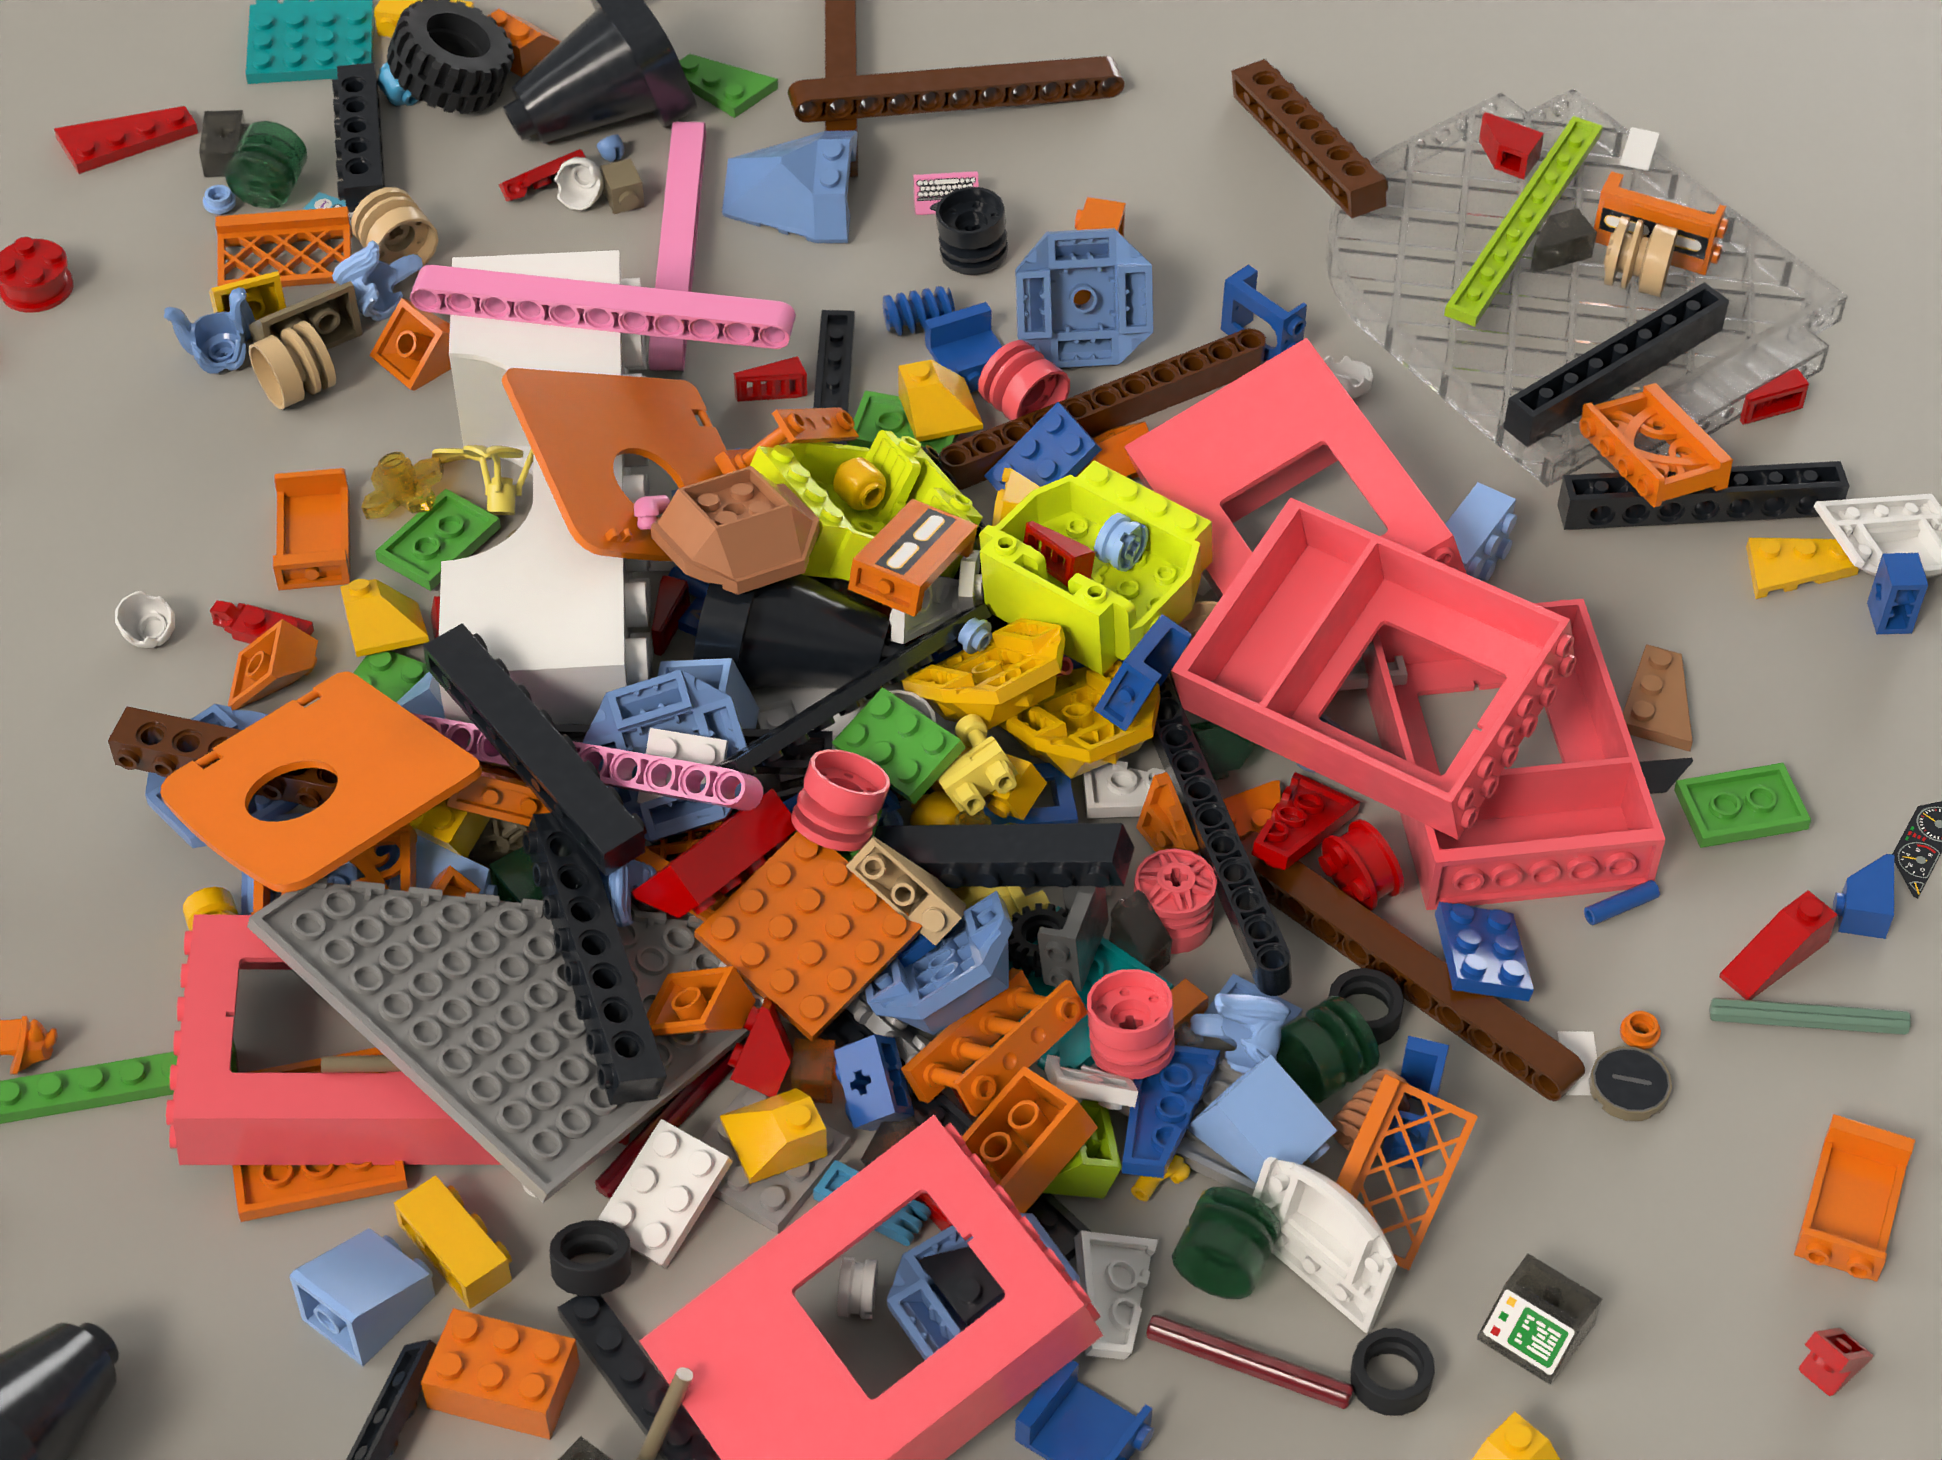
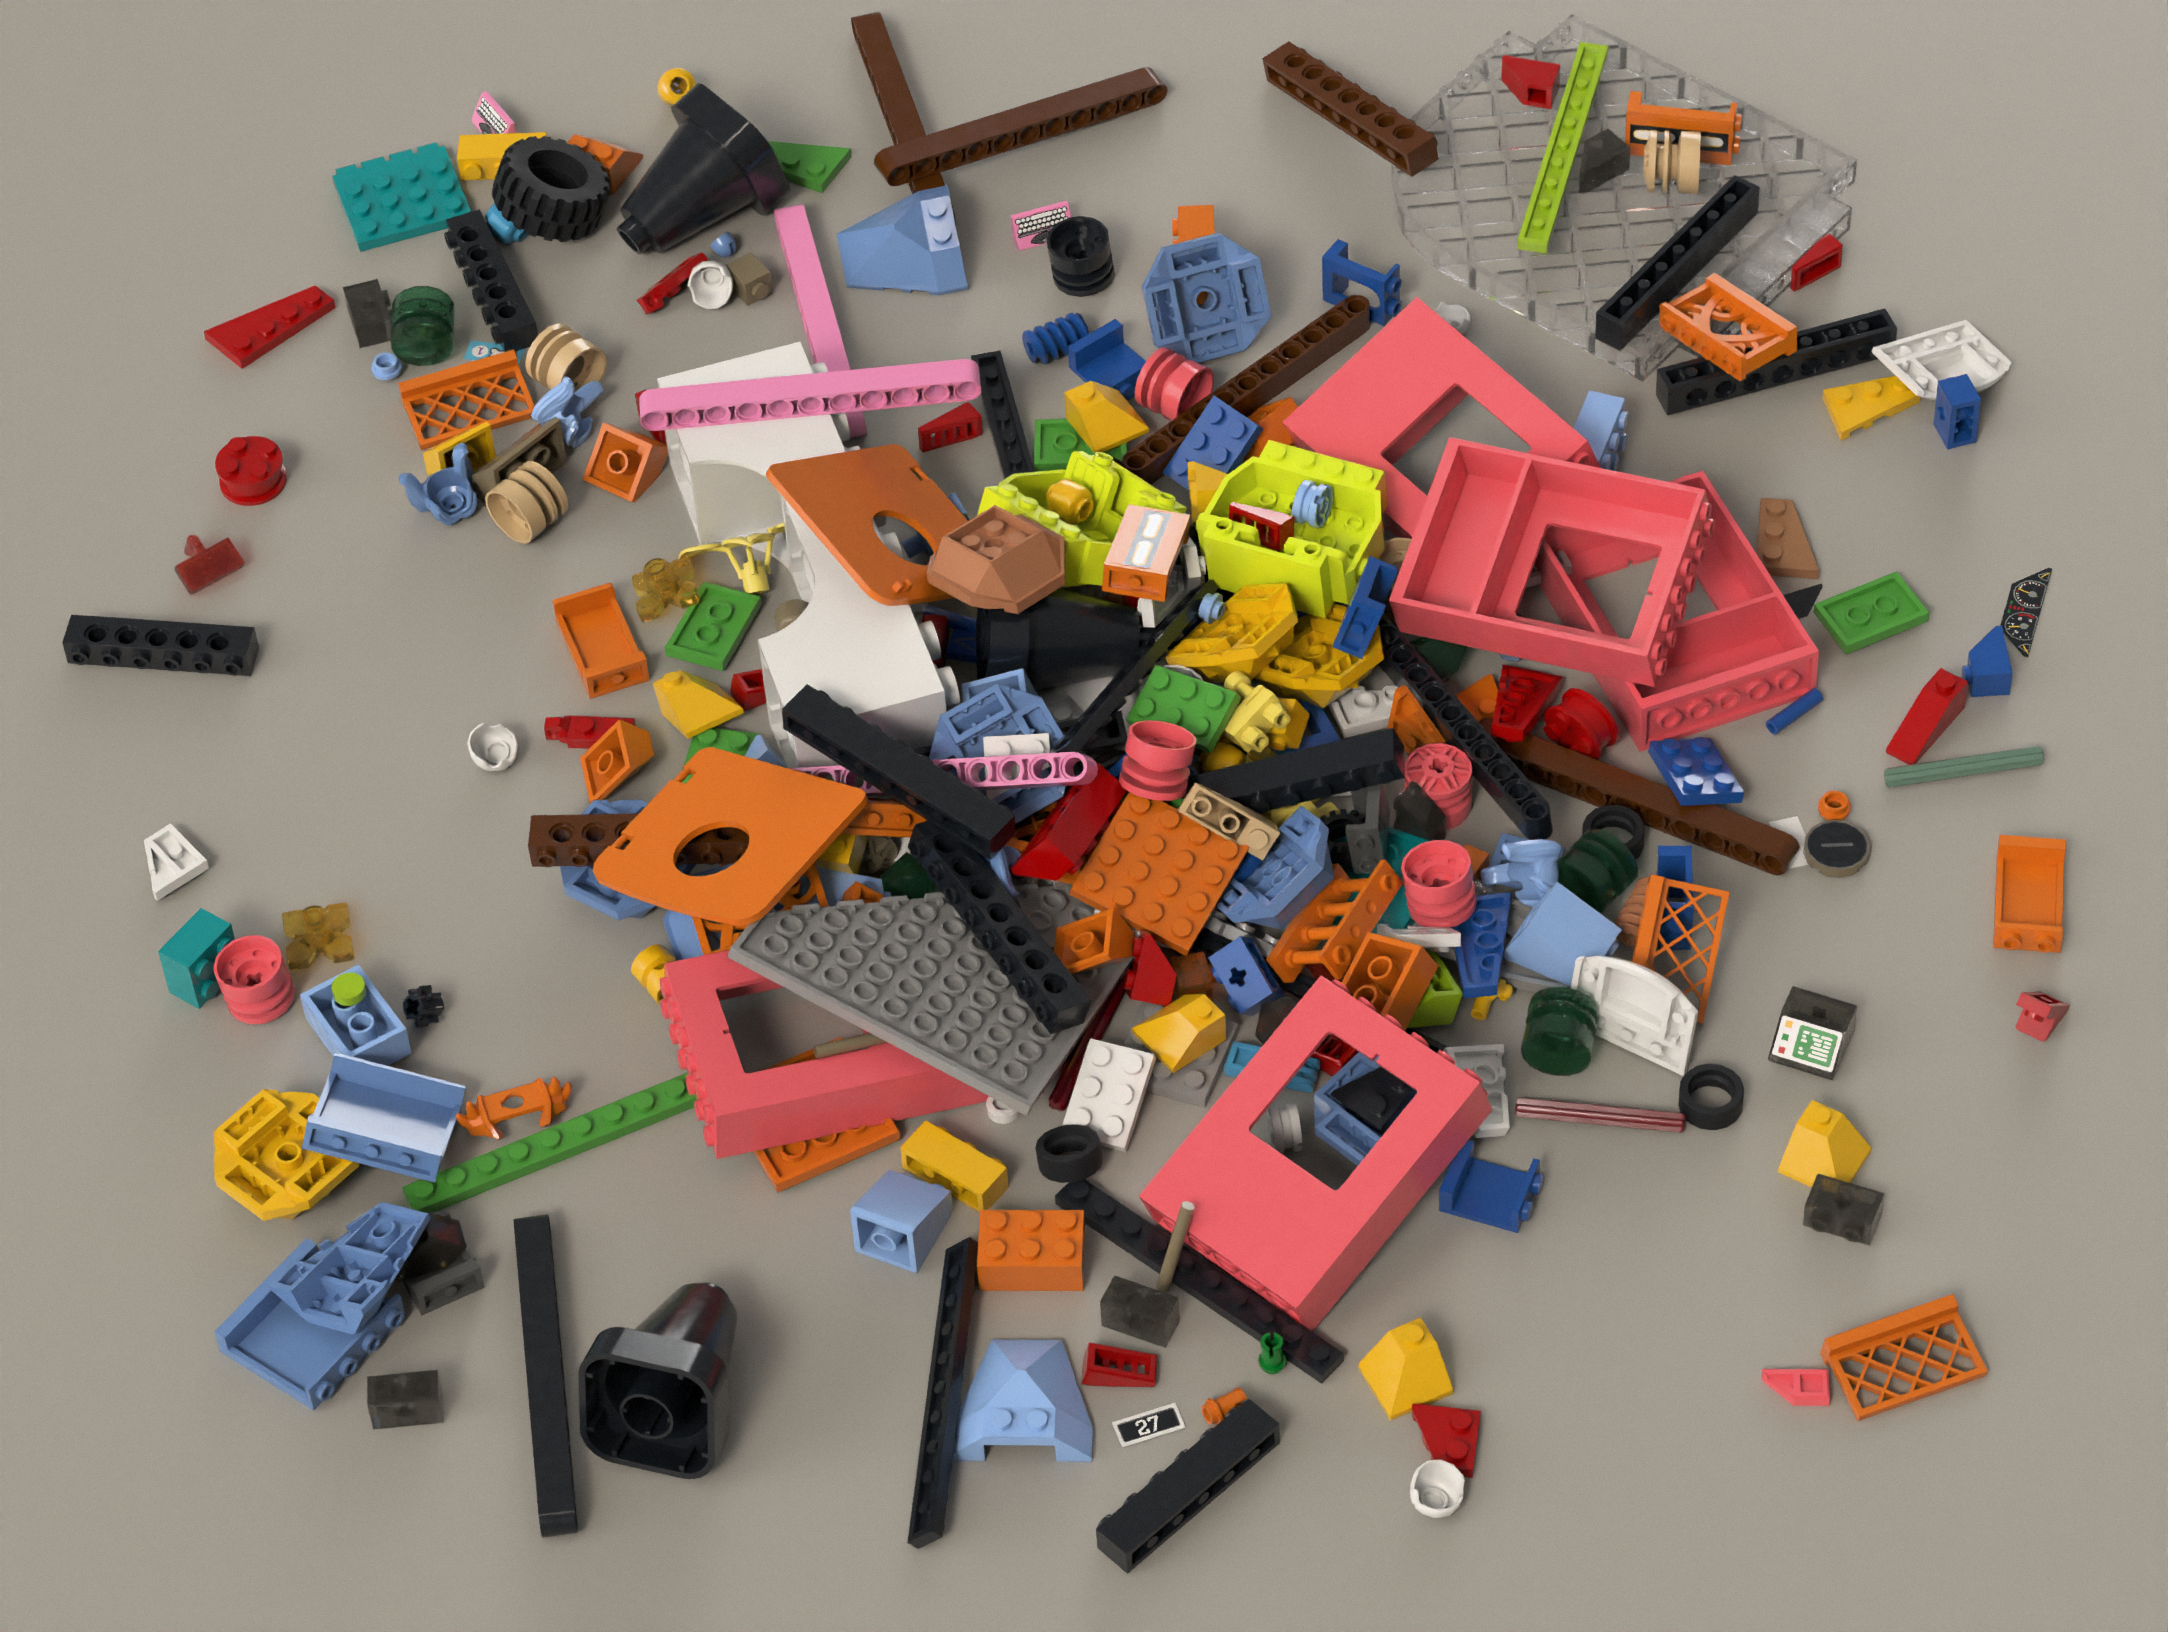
camera: 10 degrees left, 0 degrees up
(648, 508) = (917, 559): bright pink arm -> none
(794, 427) = (1011, 463): orange fence -> none
(1639, 148) = (1644, 59): white sticker -> none

